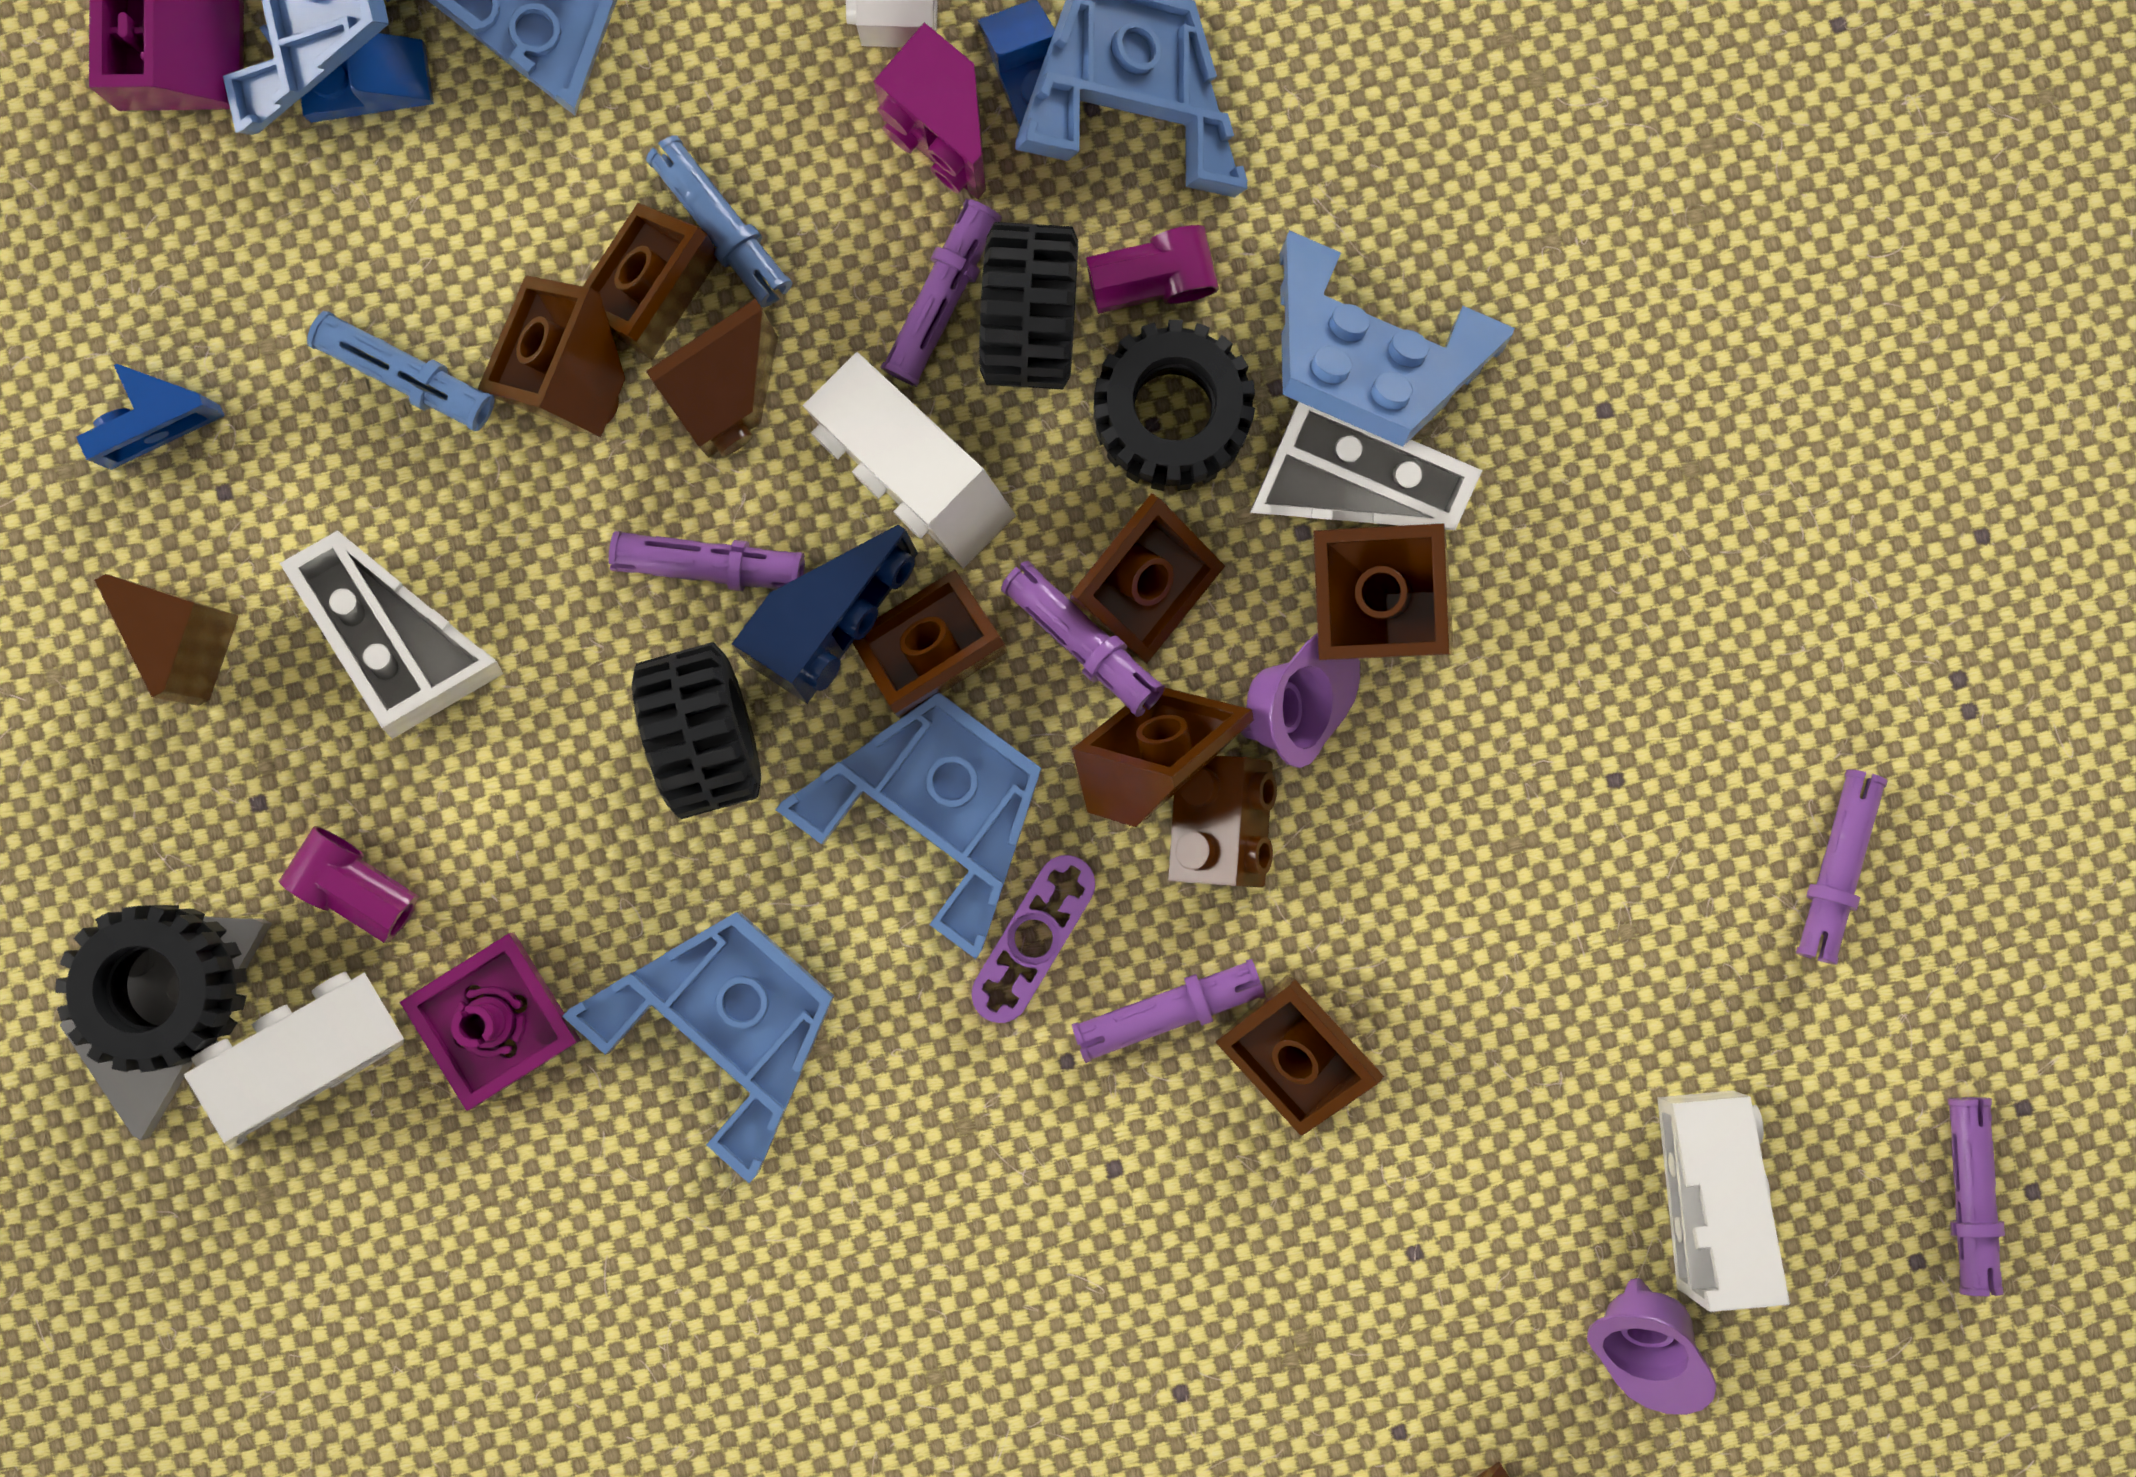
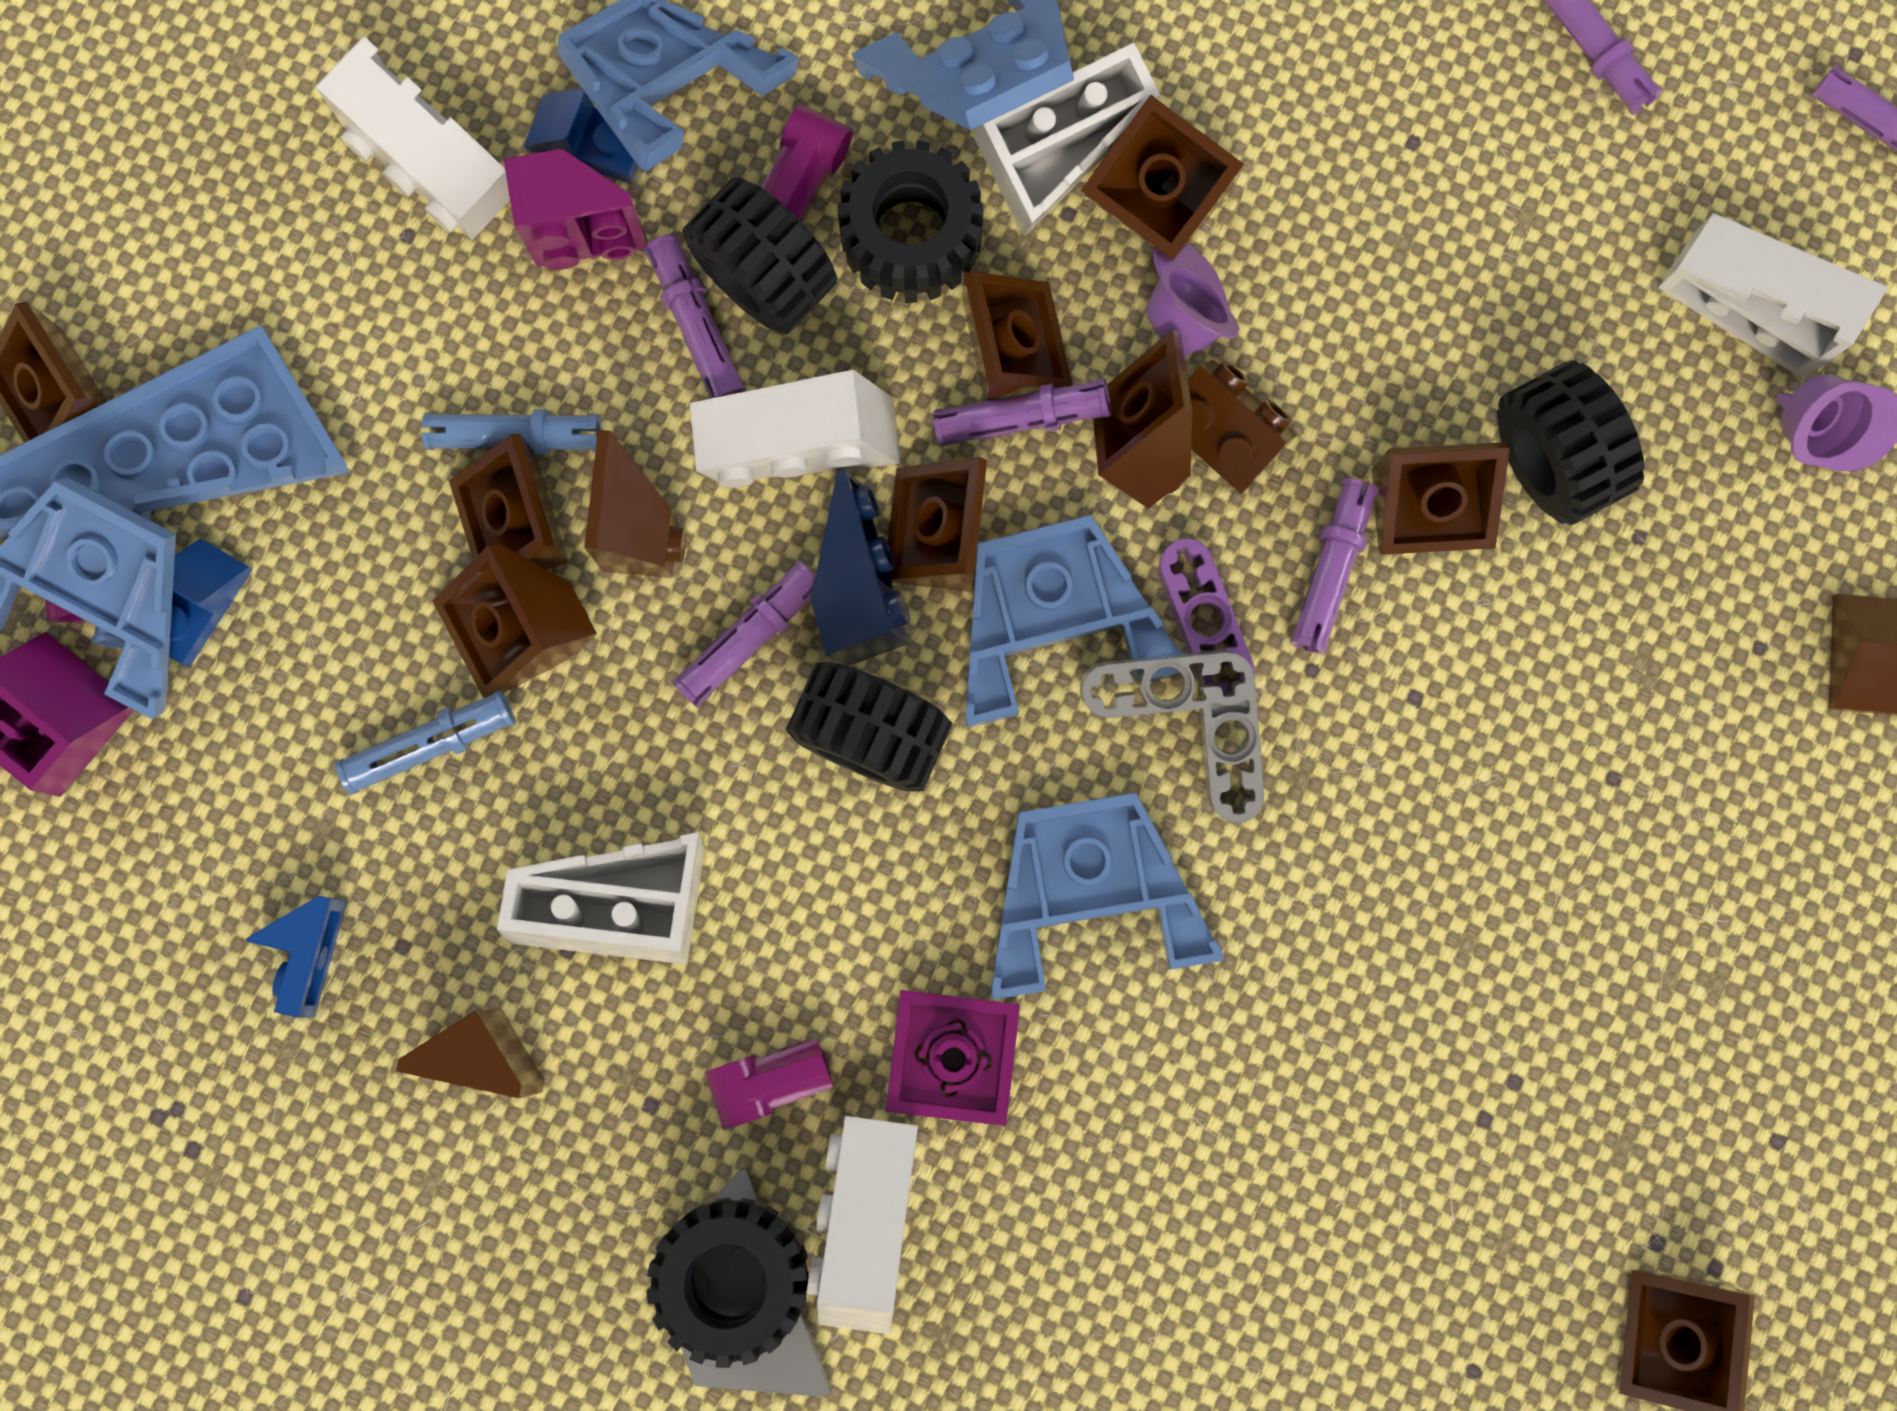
camera: 55 degrees left, 5 degrees down
(959, 1002) = (1214, 709): none -> light grey beam
(1431, 1131) = (1571, 442): none -> black tyre

